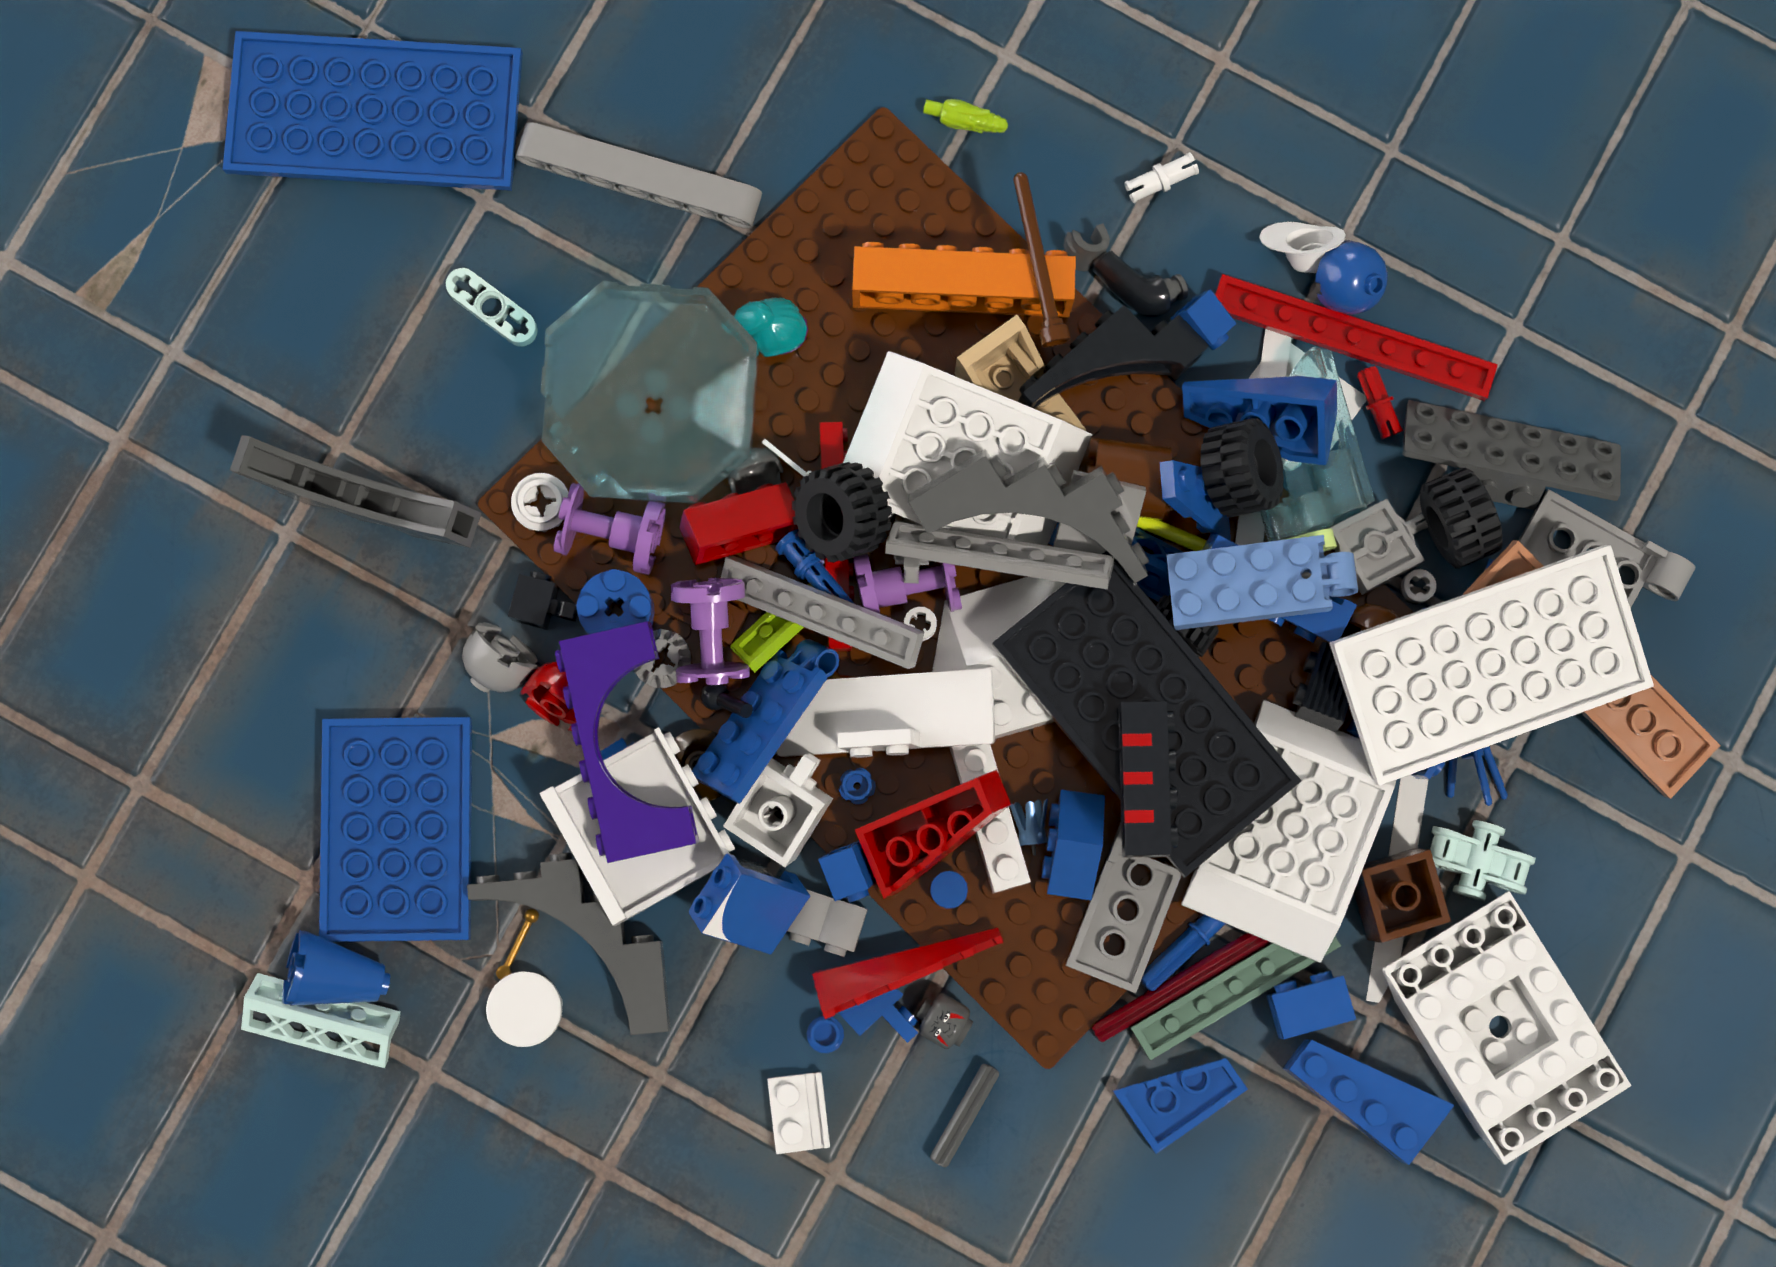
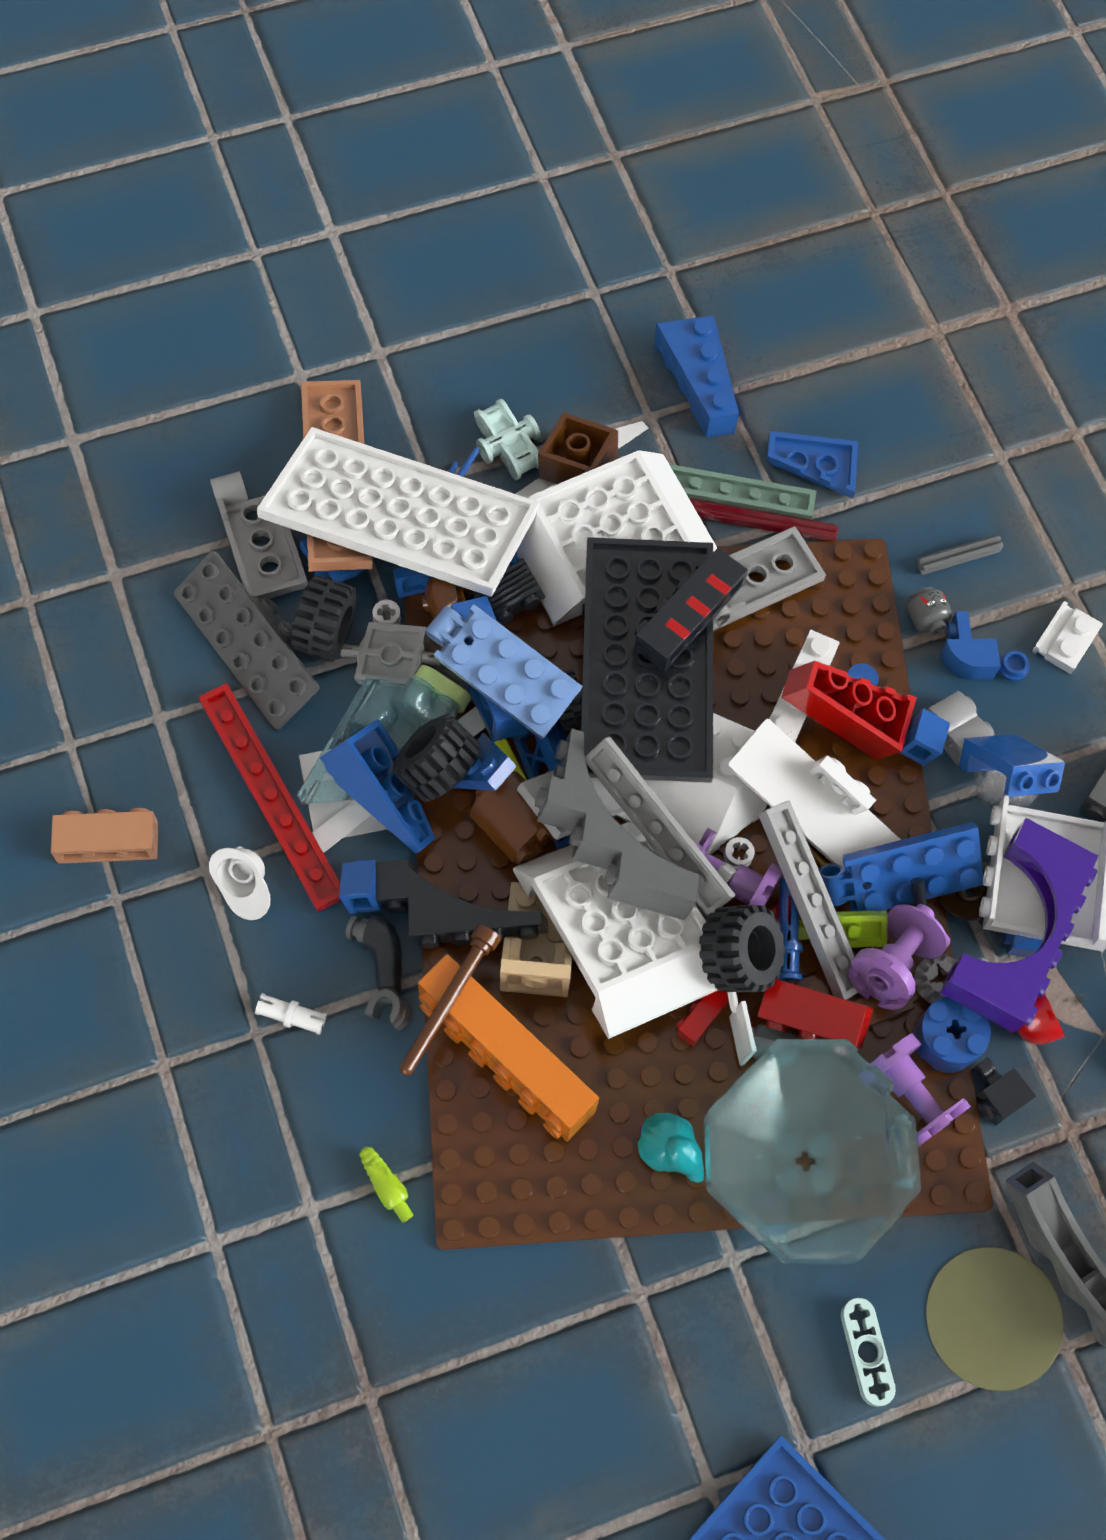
camera: 140 degrees left, 15 degrees down
(412, 420) = (994, 1319): none -> olive sticker
(495, 661) = (1062, 1075): light grey cylinder -> none
(527, 491) = (961, 1158): white gear -> none
(638, 175) = (673, 1358): light grey beam -> none
(795, 795) = (939, 802): white hinge -> none
(861, 776) = (878, 784): blue plate -> none
(866, 979) = (944, 660): red wedge -> none
(1033, 826) = (778, 665): flat silver piece -> none
(1074, 844) = (756, 629): blue brick -> none
(1180, 951) = (742, 534): blue axle -> none
(1310, 1005) = (690, 440): blue brick -> none
(1351, 278) = (235, 823): blue cylinder -> none
(1379, 401) = (297, 741): red axle -> none
(1450, 185) = (104, 836): none -> nougat brick
(1547, 1063) = (592, 311): white slope -> none

